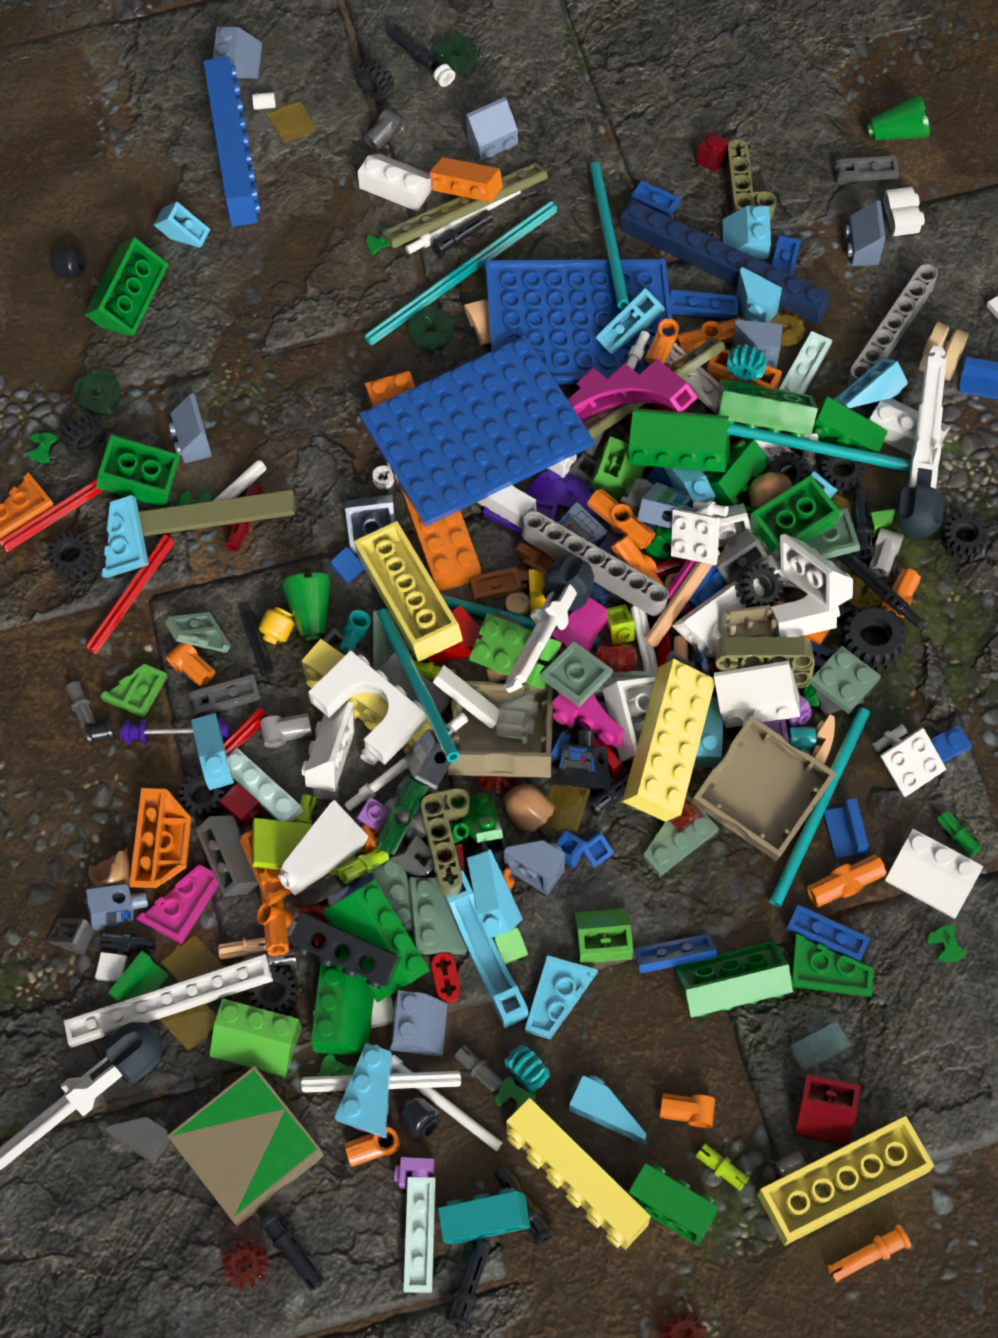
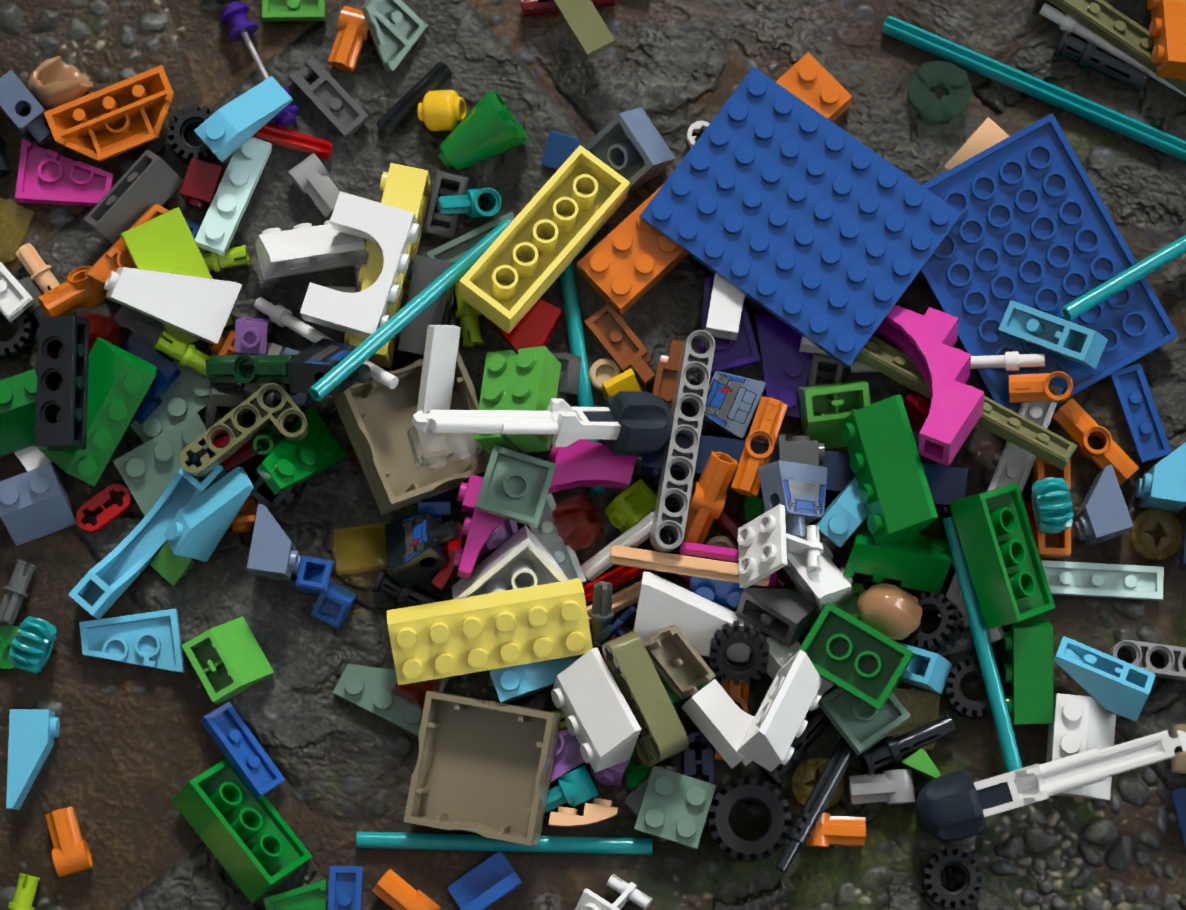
camera: 65 degrees right, 15 degrees up
(527, 807) = (346, 506): medium nougat hair -> none

